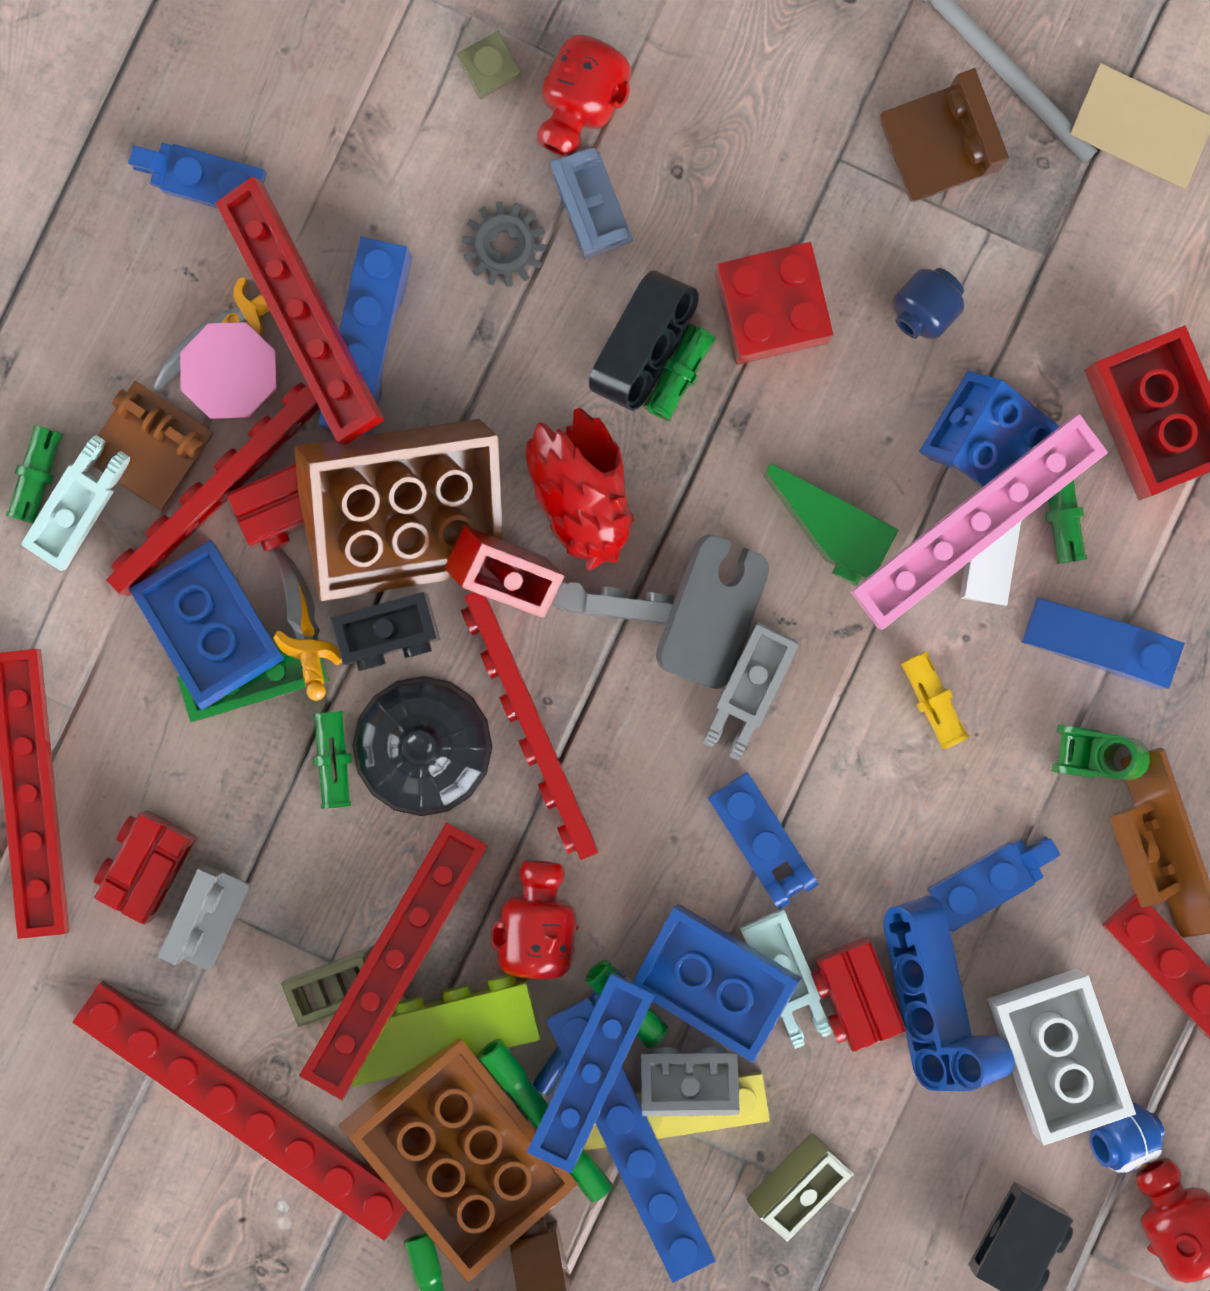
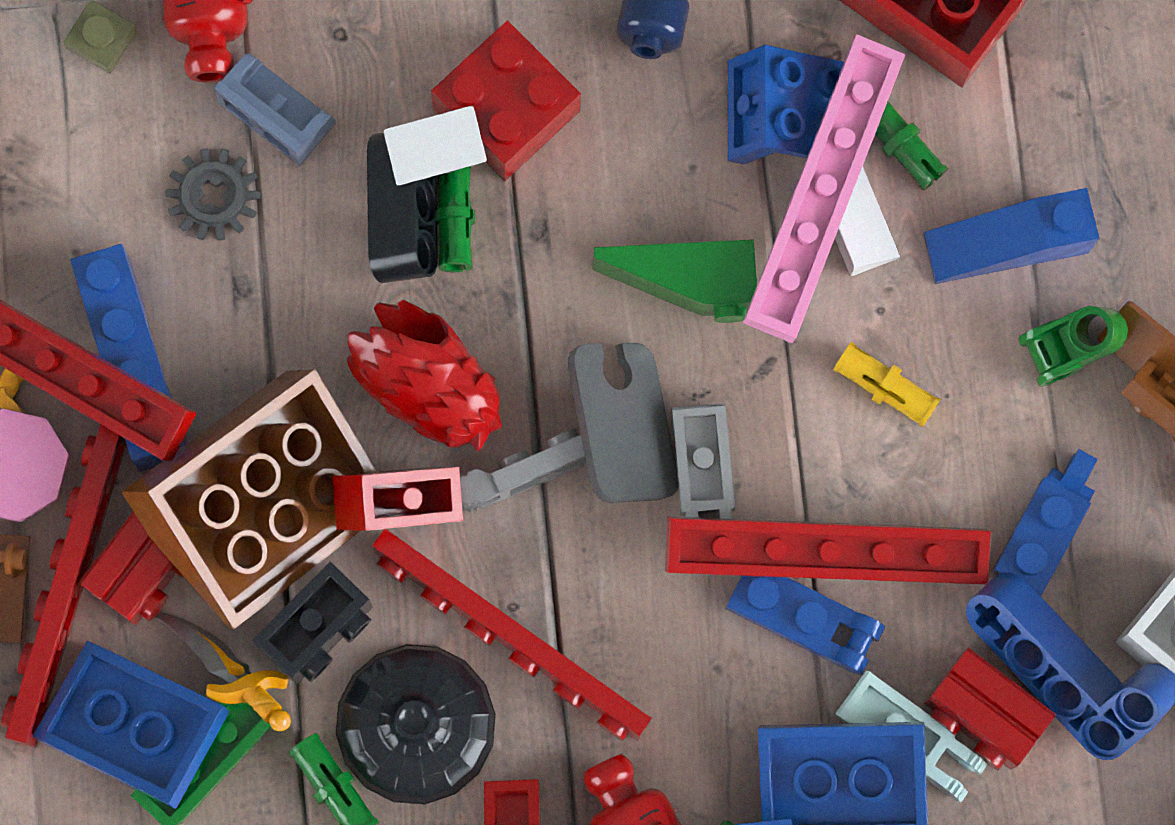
camera: 40 degrees left, 10 degrees down
(694, 310) = (435, 145): none -> white sticker
(809, 803) = (827, 550): none -> red plate

